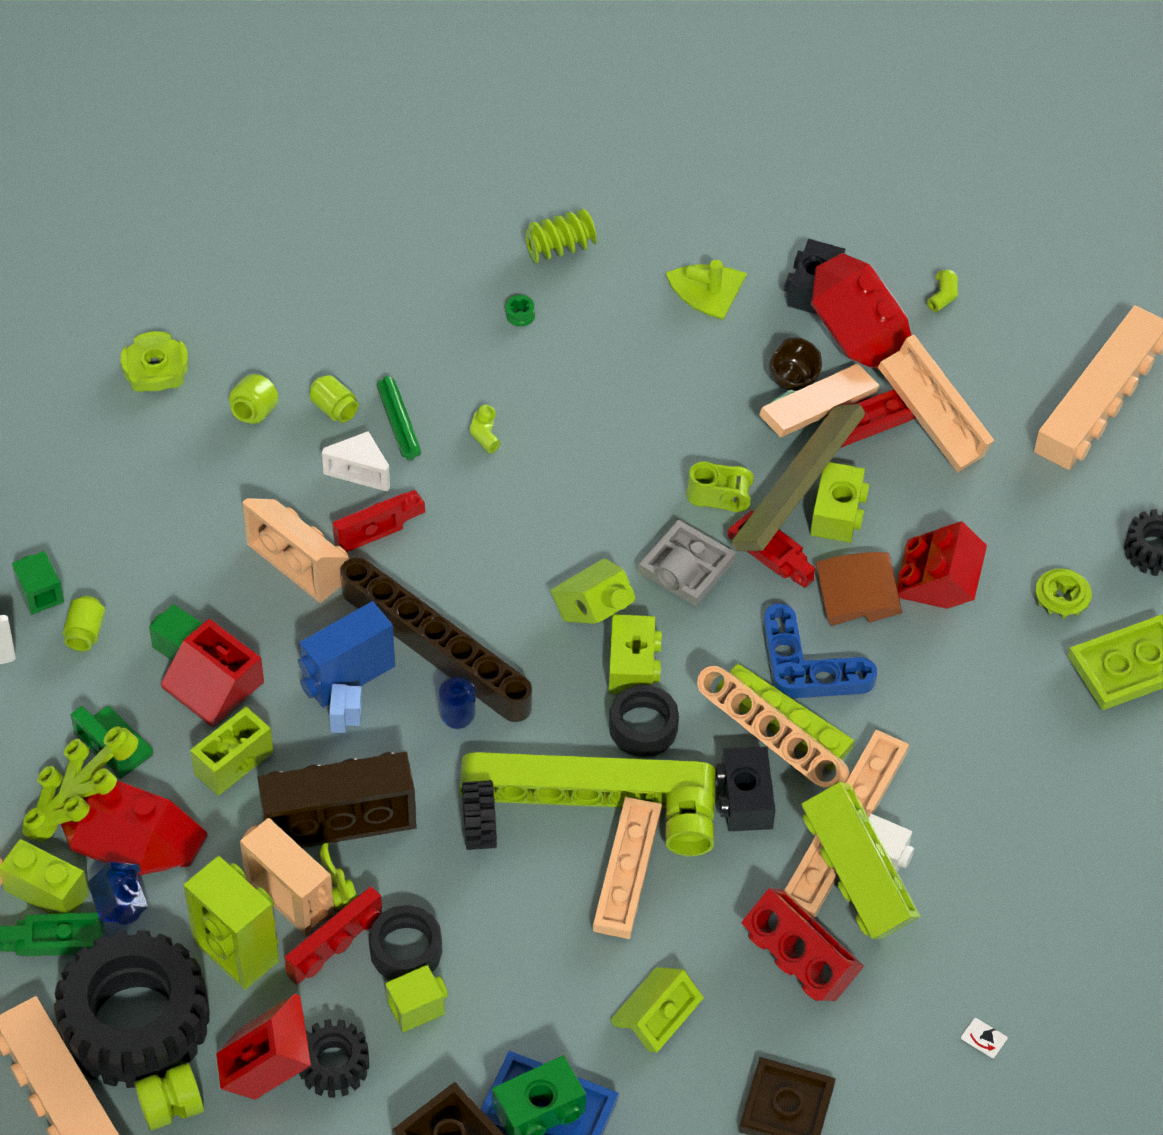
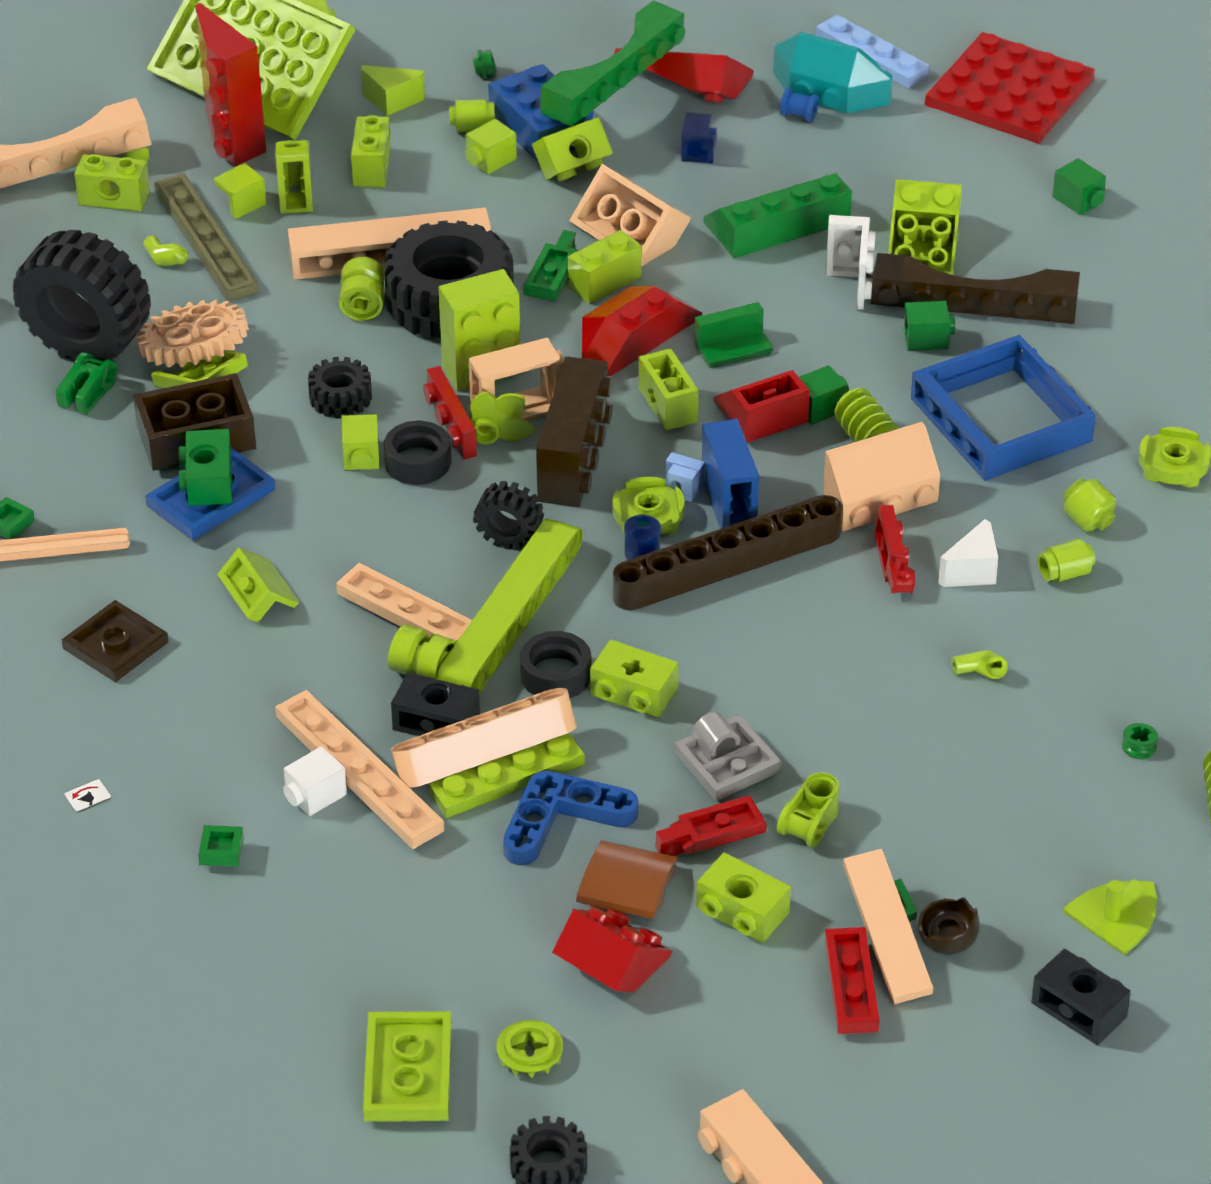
camera: 115 degrees right, 10 degrees down
(44, 819) = (701, 301): lime plant -> none
(83, 623) = (867, 344): lime brick -> none
(118, 893) = (573, 308): clear blue brick -> none
(167, 533) = (931, 395): none -> blue window
(213, 578) = (862, 415): none -> lime piece
(265, 1051) = (359, 331): red slope -> none
(394, 705) = (666, 503): none -> lime plate
(398, 418) = (1024, 606): green axle -> none
(600, 592) = (713, 663): lime torso -> none
(798, 478) = (779, 858): olive tile -> none
(819, 950) = (246, 681): red brick -> none
(859, 310) = (992, 994): red wedge -> none
(860, 861) = (294, 733): lime brick -> none
(935, 405) = (826, 1016): light nougat fence -> none
(948, 290) = (1017, 1121): lime arm -> none
(992, 889) = (221, 845): none -> green plate

